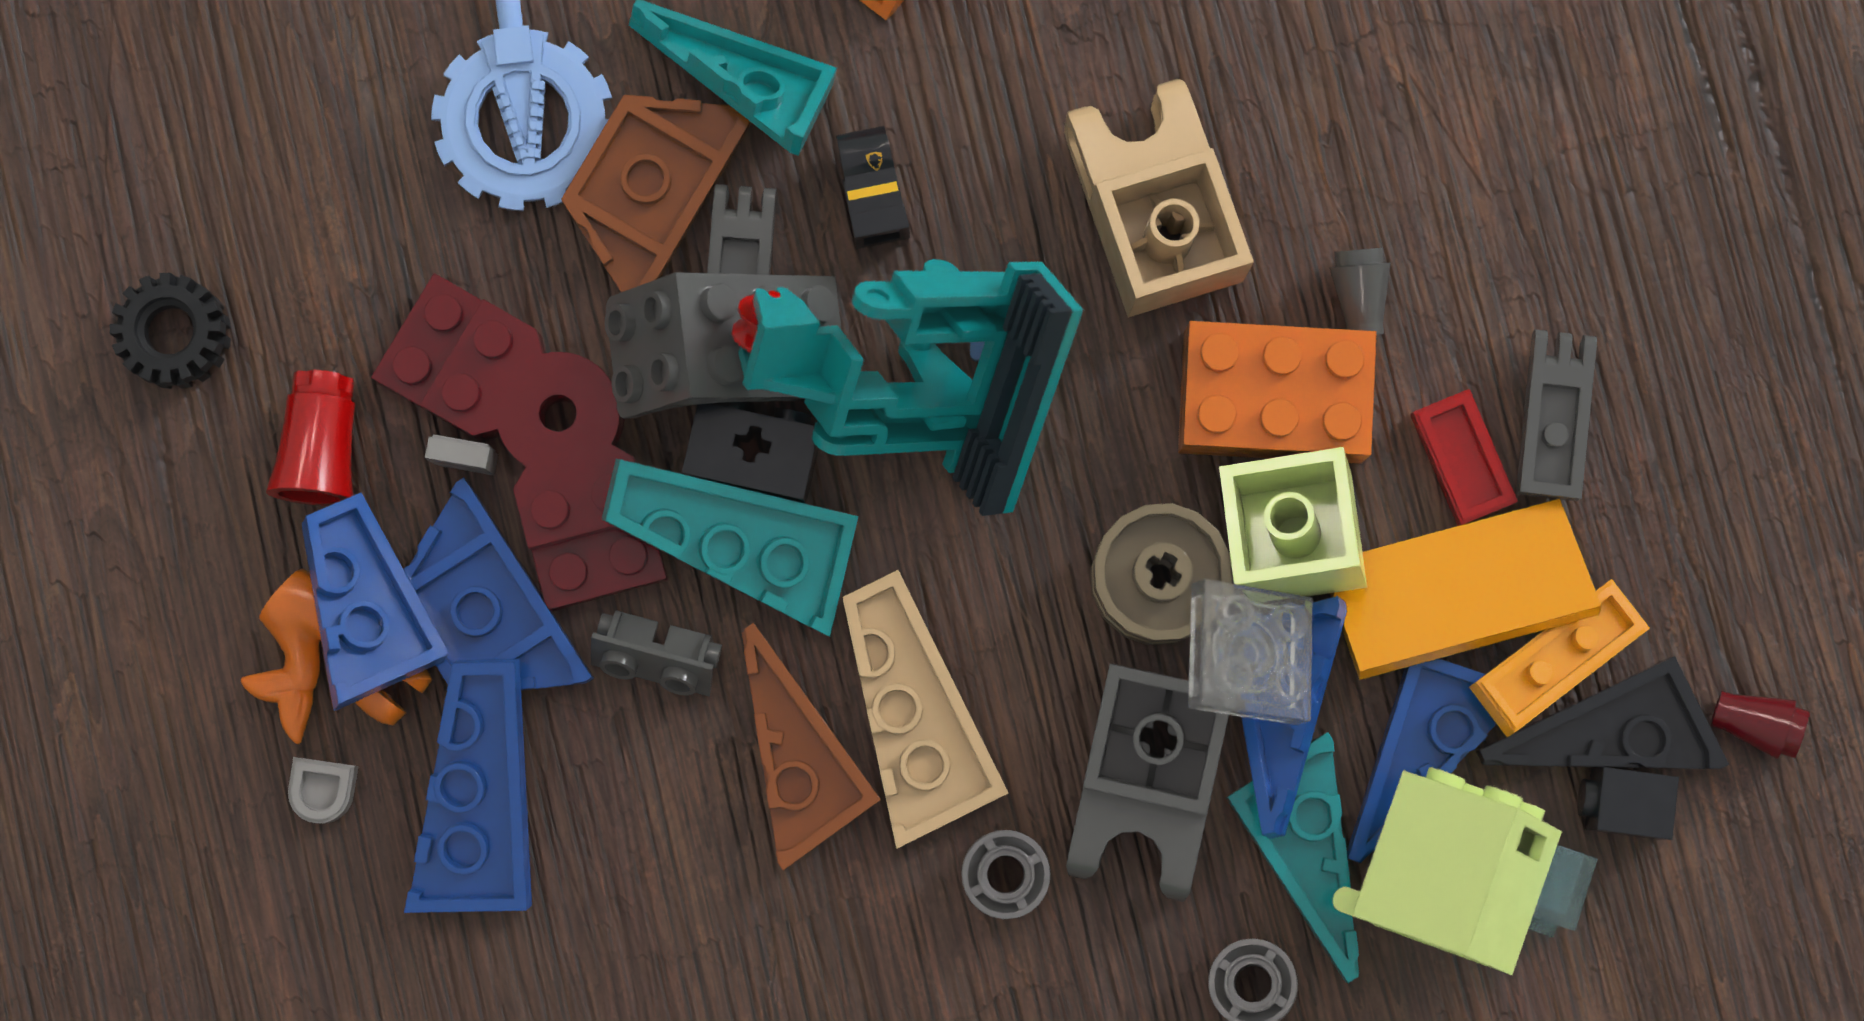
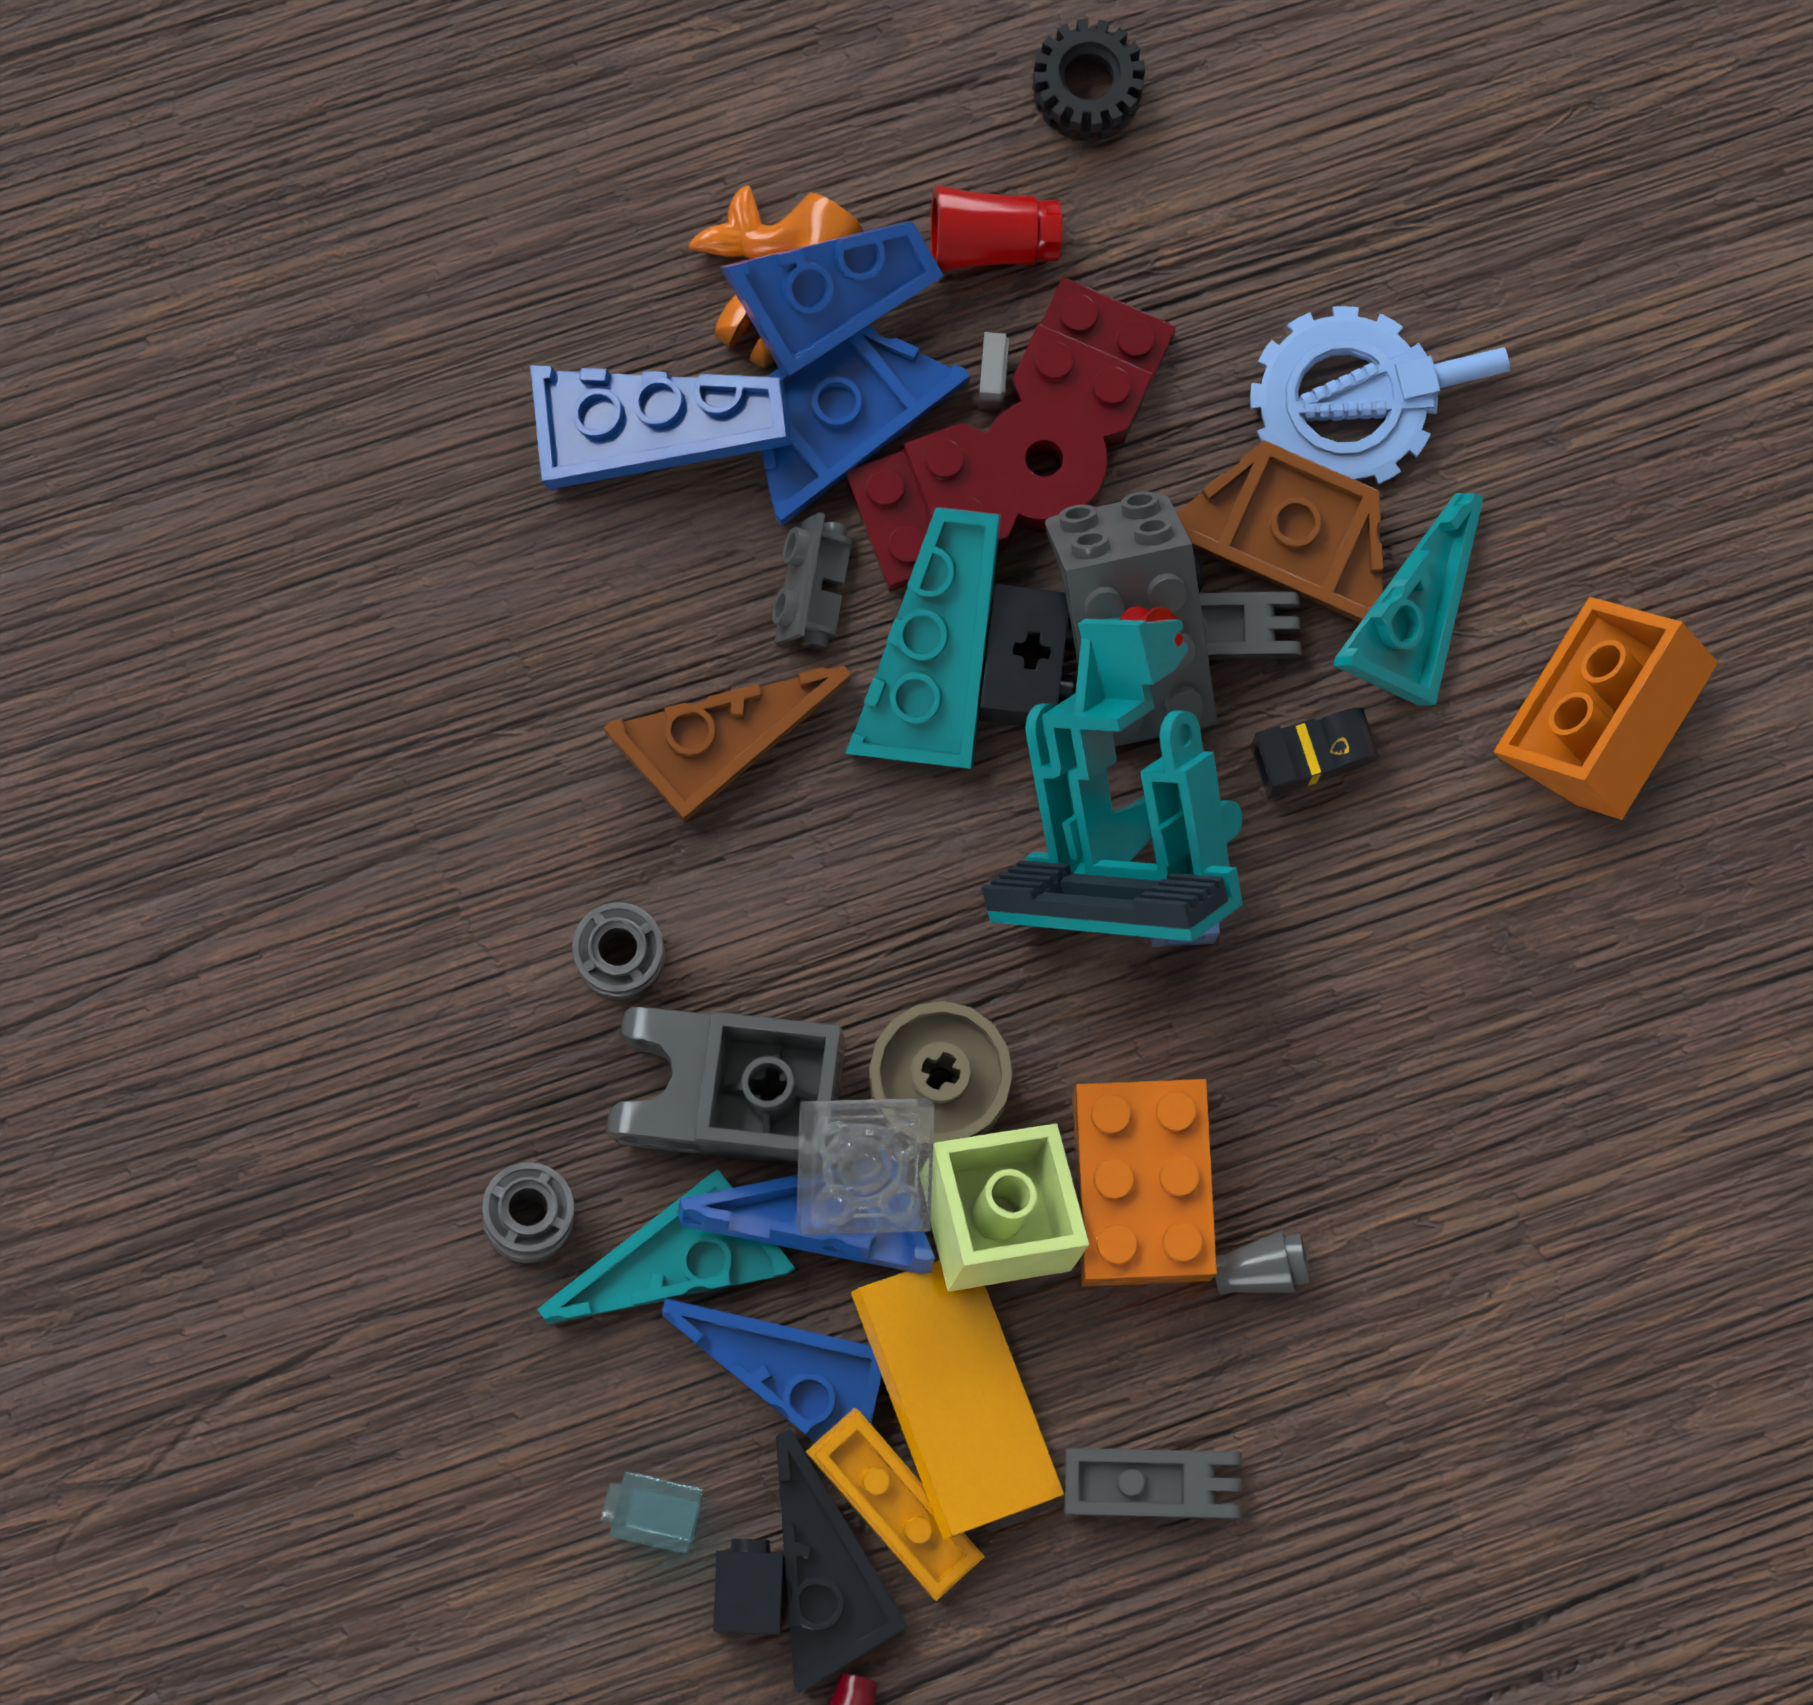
camera: 80 degrees right, 5 degrees down
(321, 789) = (645, 275): light grey tile -> none
(920, 727) = (756, 856): tan wing -> none
(1157, 184) = (1348, 1037): tan brick -> none
(1456, 869) = (659, 1399): yellowish green container -> none
(1463, 457) = (1098, 1391): red tile -> none

